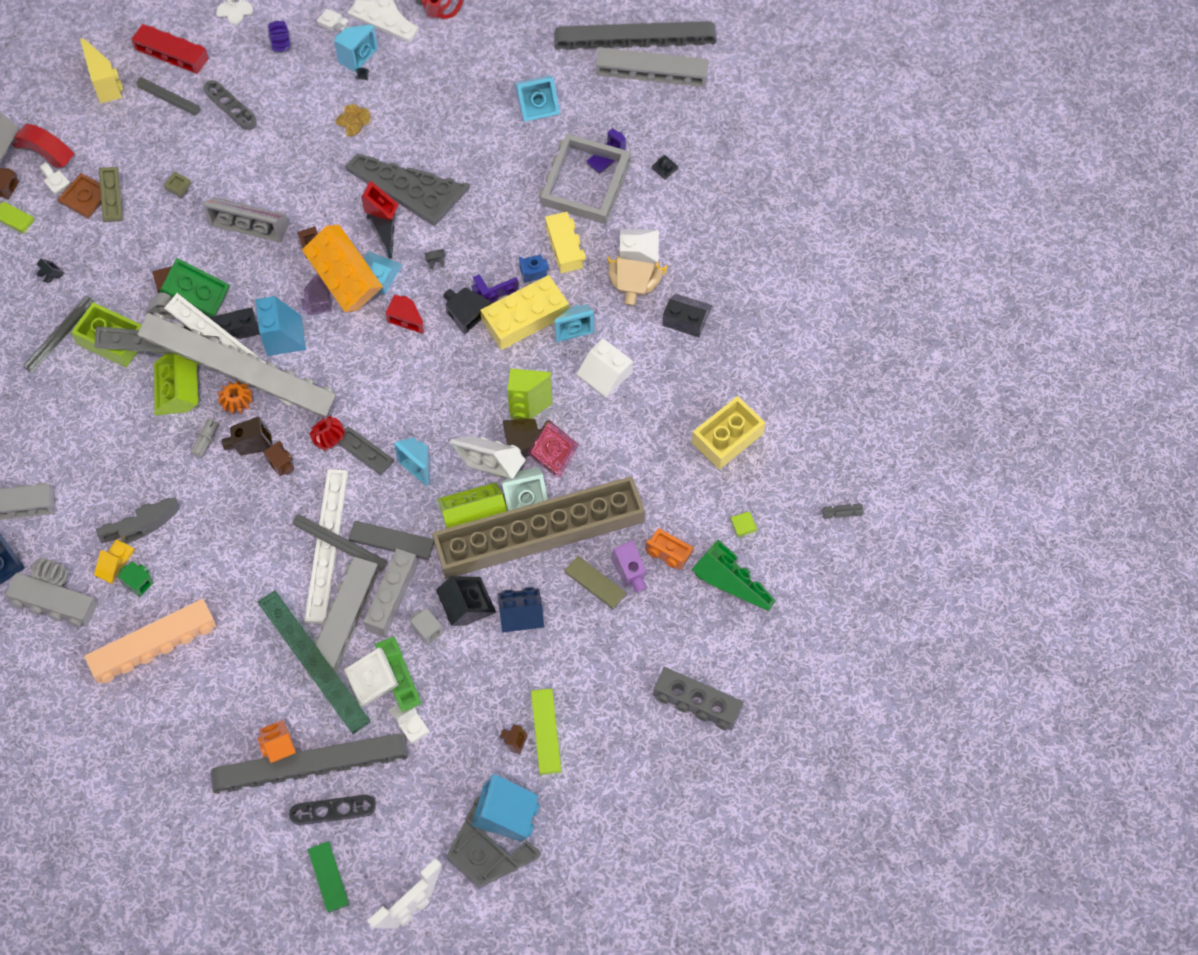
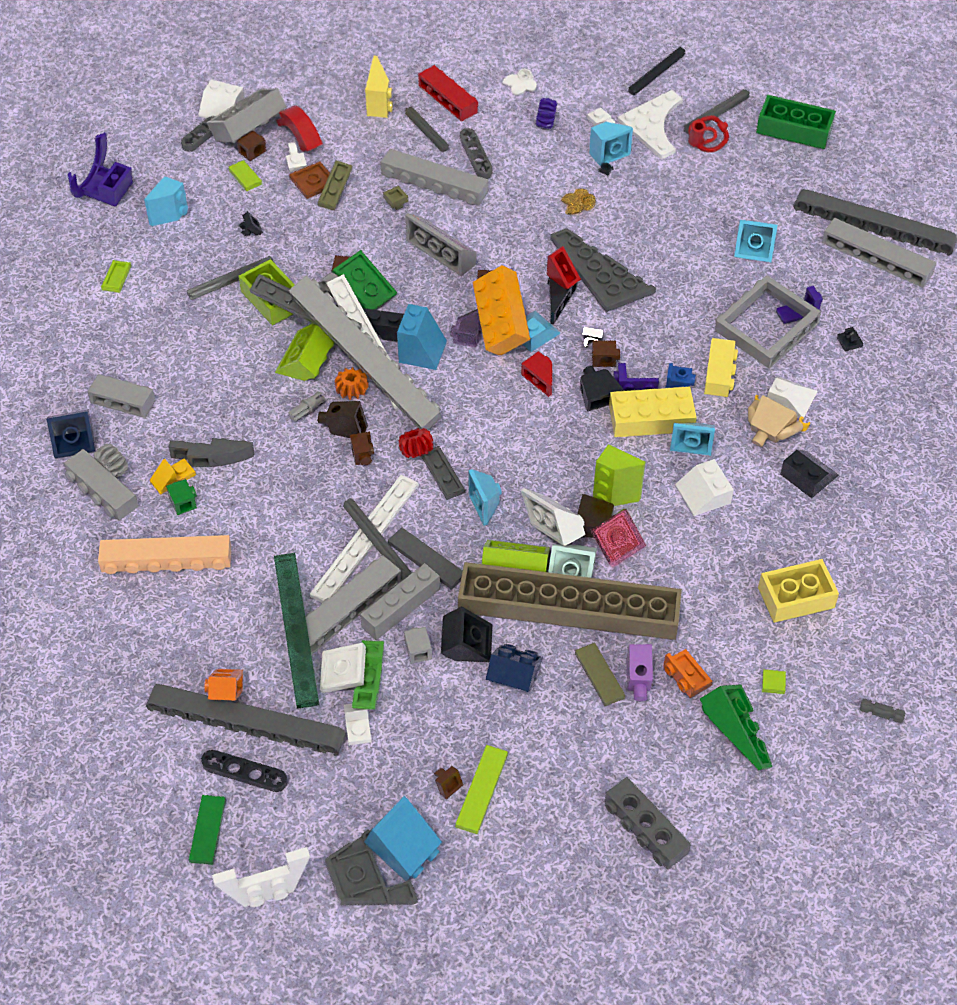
camera: 25 degrees right, 10 degrees down
(203, 147) = (434, 177): none -> light grey brick
(454, 270) = (604, 353): none -> reddish brown brick

